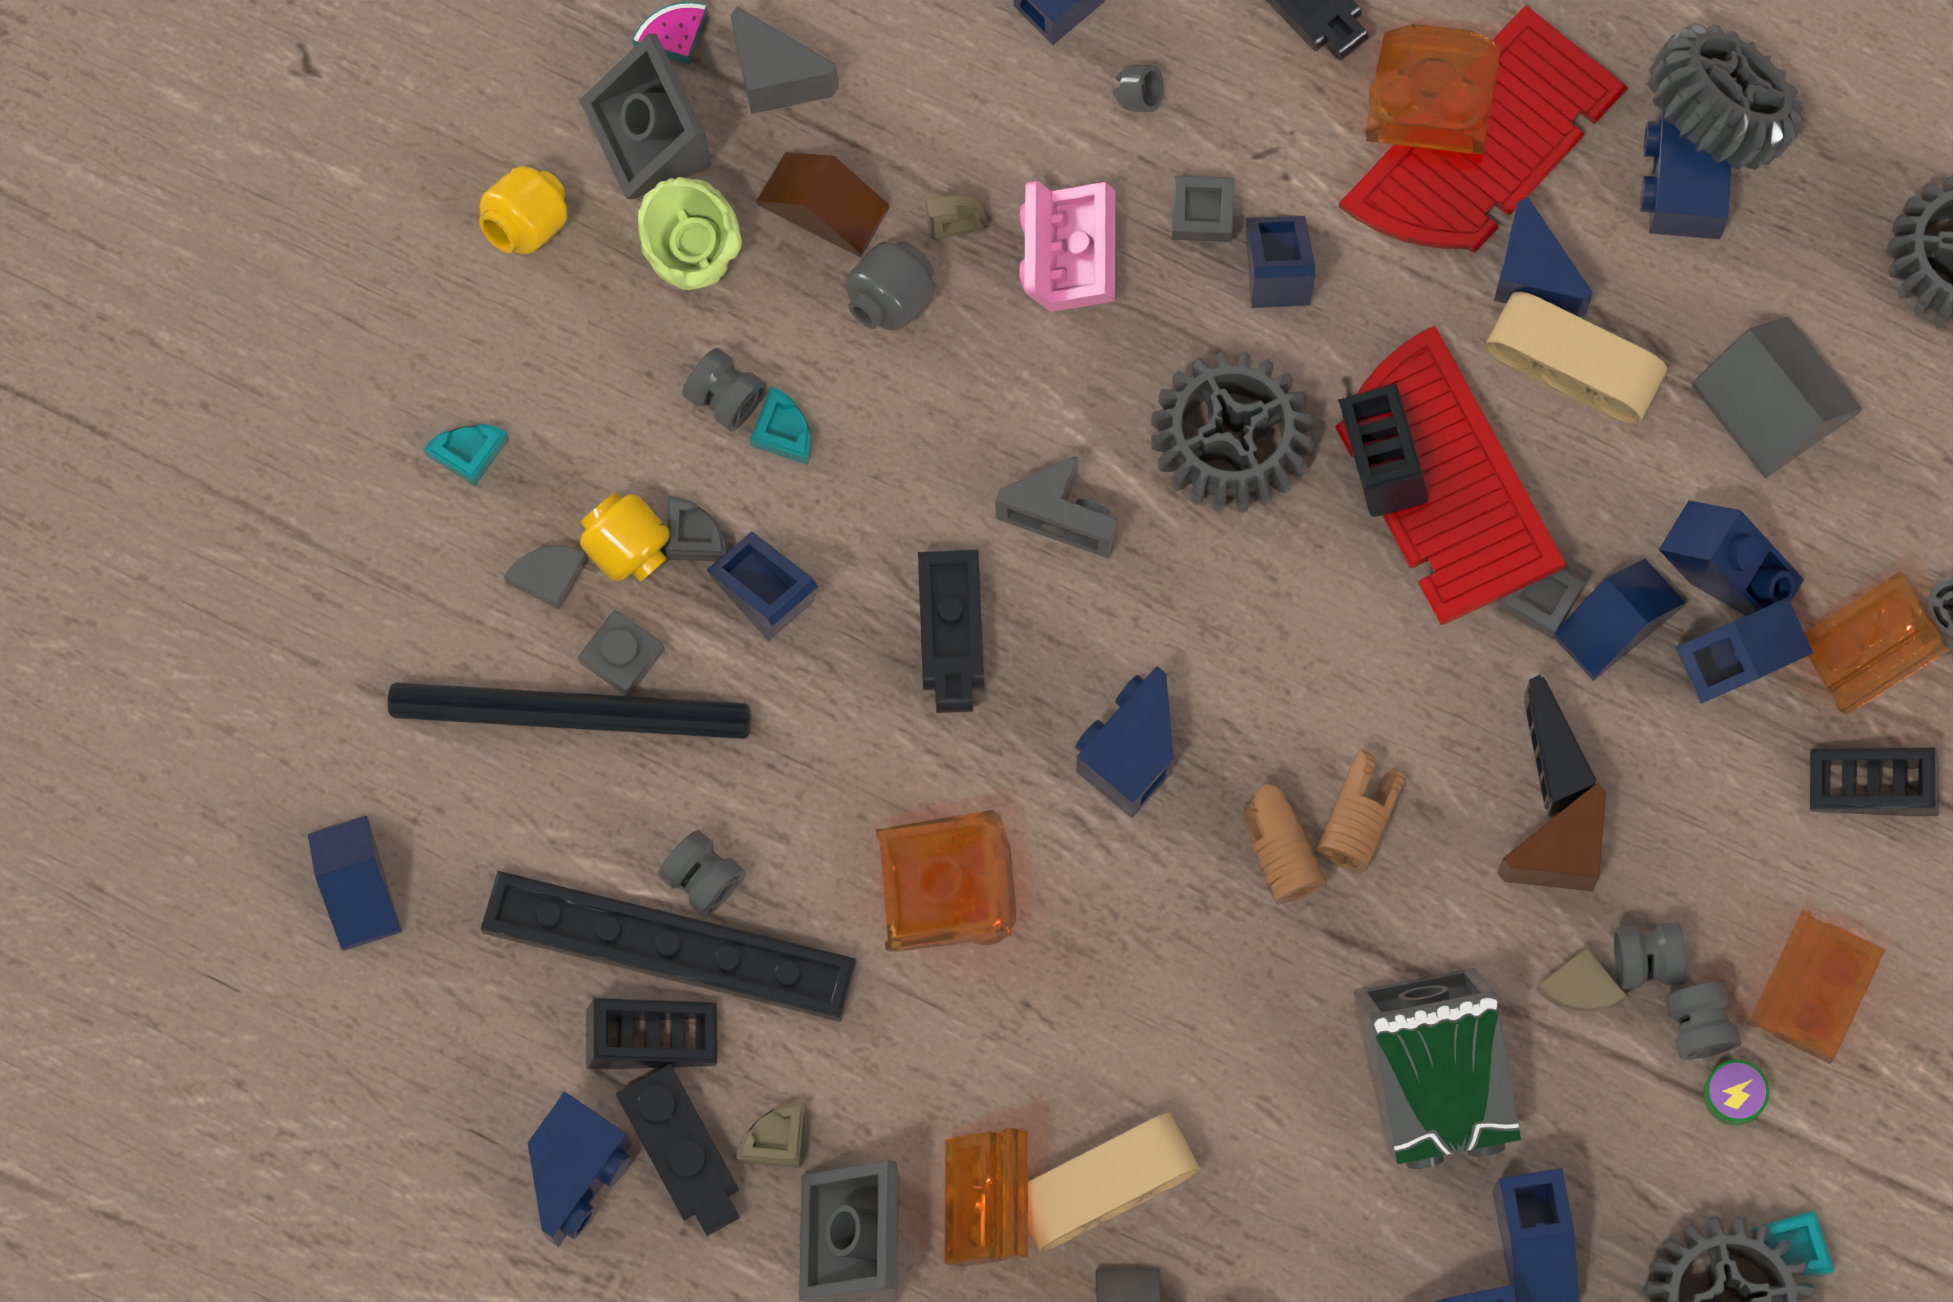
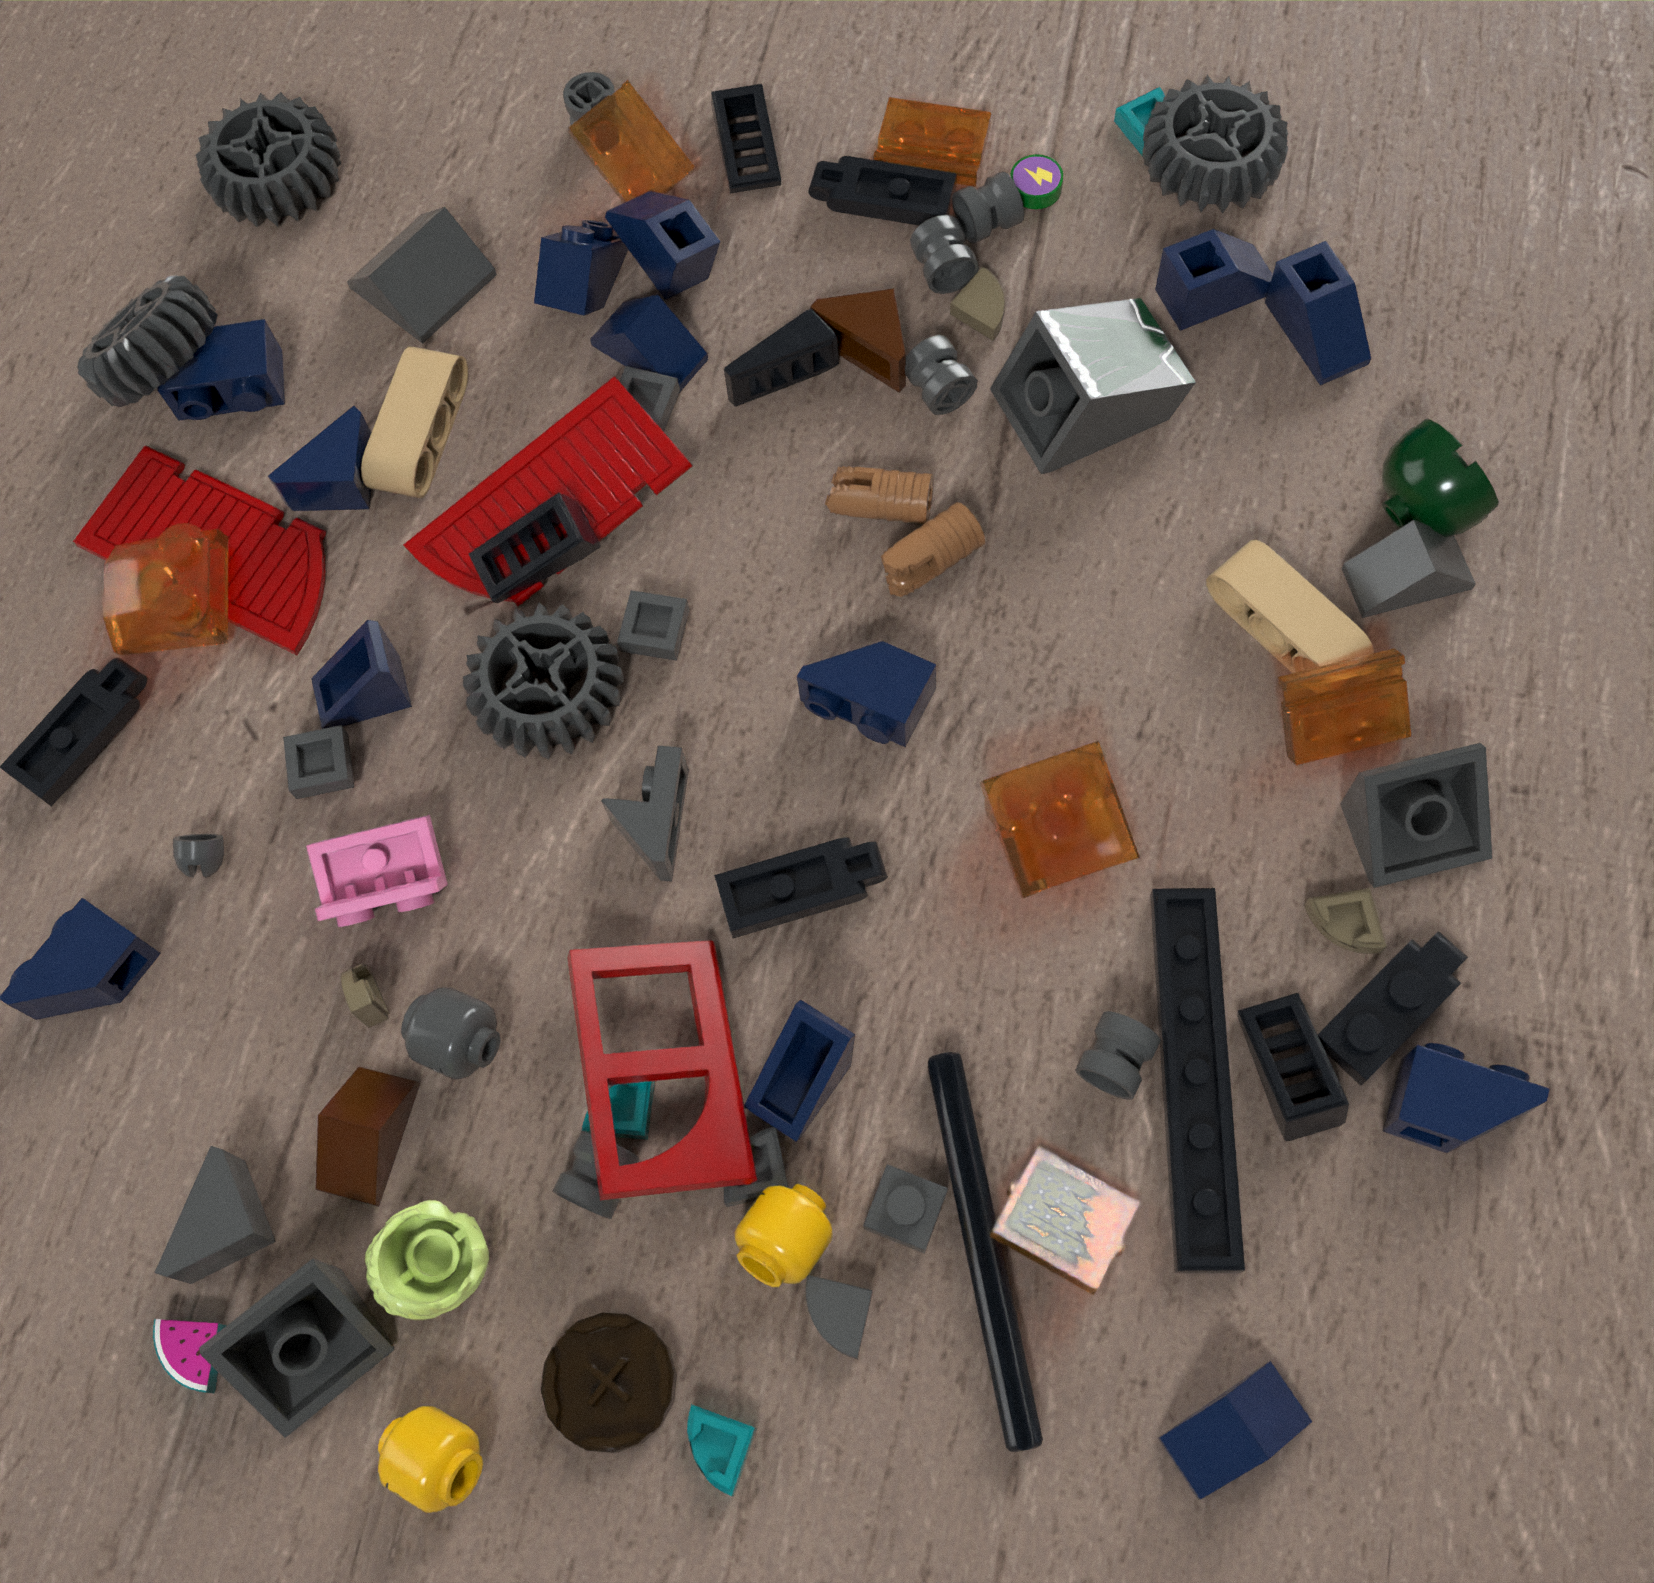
camera: 100 degrees left, 5 degrees down
(546, 370) = (608, 1383): none -> dark brown tile
(569, 786) = (1065, 1220): none -> piece
(719, 499) = (719, 1145): none -> red window
(1268, 551) = (653, 625): none -> dark grey plate
(1491, 908) = (942, 379): none -> dark grey wheel
(1758, 917) = (883, 189): none -> black hinge

